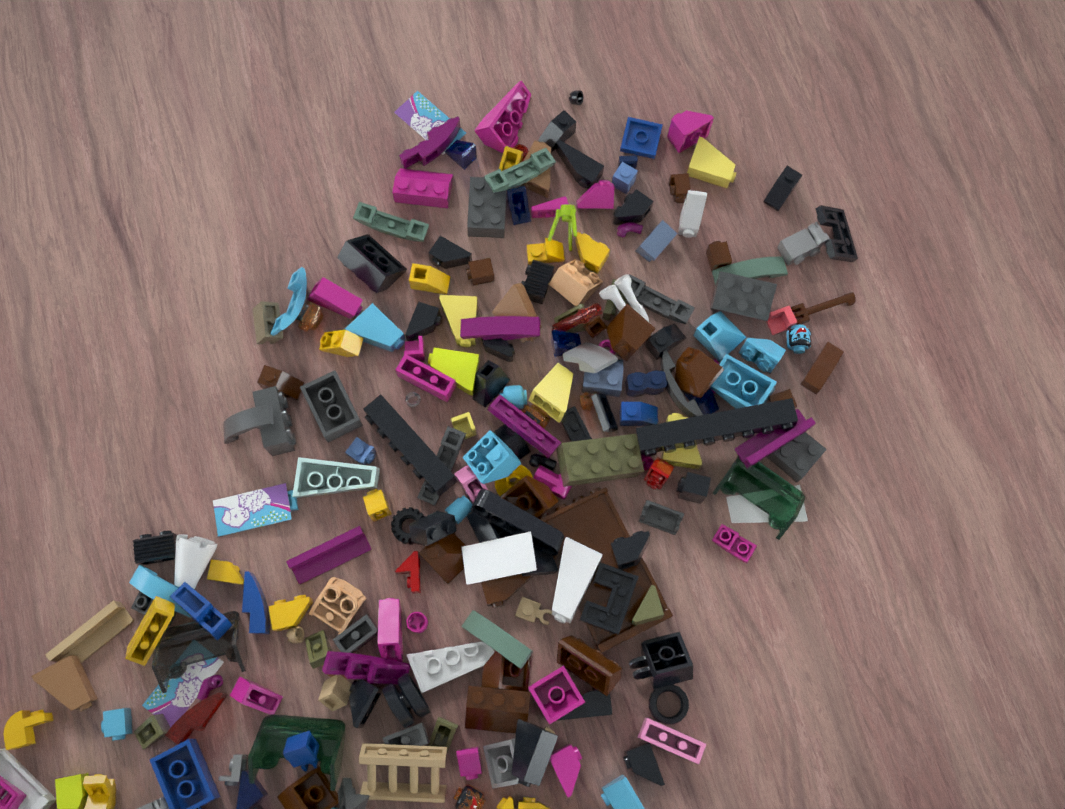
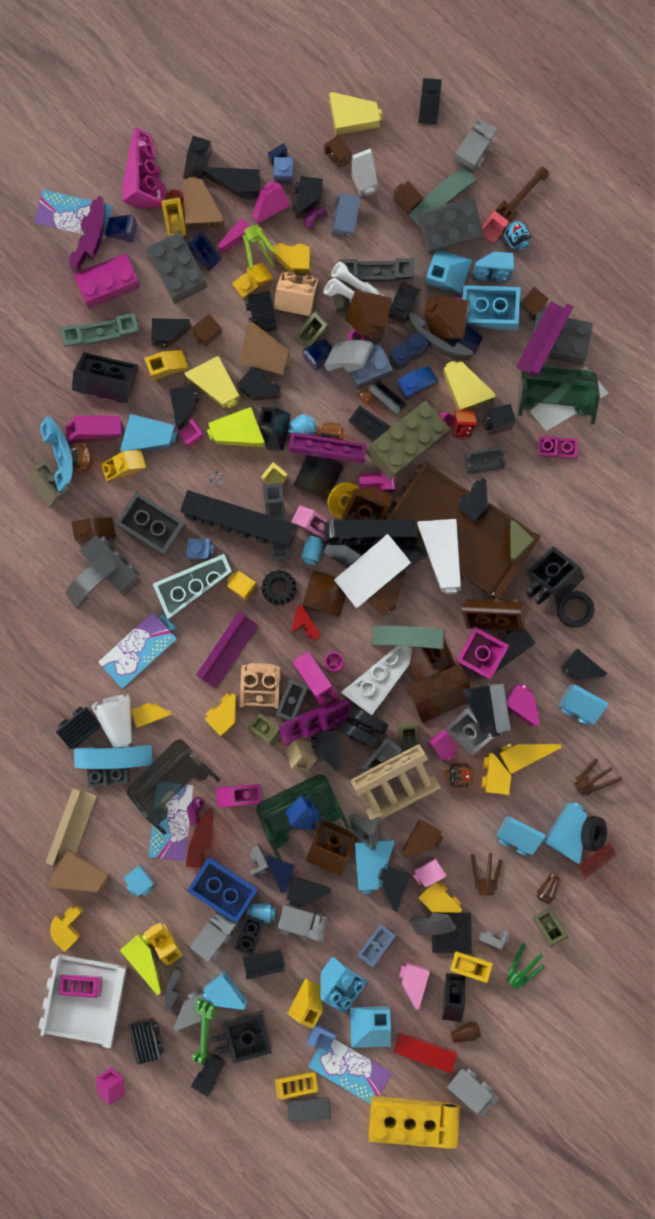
camera: 30 degrees left, 10 degrees up
(150, 631) = (120, 794): yellow brick -> none
(152, 730) = (171, 871): olive slope -> none
(201, 611) = (152, 754): blue slope -> none
(255, 605) = (192, 725): blue slope -> none
(295, 635) = (239, 729): tan hinge -> none
(426, 378) = (217, 453): dark pink brick -> none
(432, 528) = (302, 577): black brick -> none
(491, 459) = (317, 492): medium azure slope -> none
(500, 327) = (256, 372): magenta slope -> none
(520, 173) = (190, 218): sand green slope -> none
(529, 611) = (420, 599): tan plate -> none
(536, 459) = (353, 470): black arm -> none
(553, 392) = (335, 403): light yellow slope -> none
(576, 97) = (194, 115): black hinge -> none
(582, 316) = (323, 322): clear red pin -> none
(595, 326) = (337, 324): reddish brown slope -> none
(612, 616) = (492, 562): black plate -> none
(641, 137) = (276, 122): blue plate -> none
(671, 740) = (594, 636): bright pink brick -> none
(687, 128) = (315, 91): dark pink slope -> none
(716, 427) = (491, 356): black brick -> none
(822, 368) = (551, 251): reddish brown slope -> none
(842, 245) = (512, 127): black plate -> none

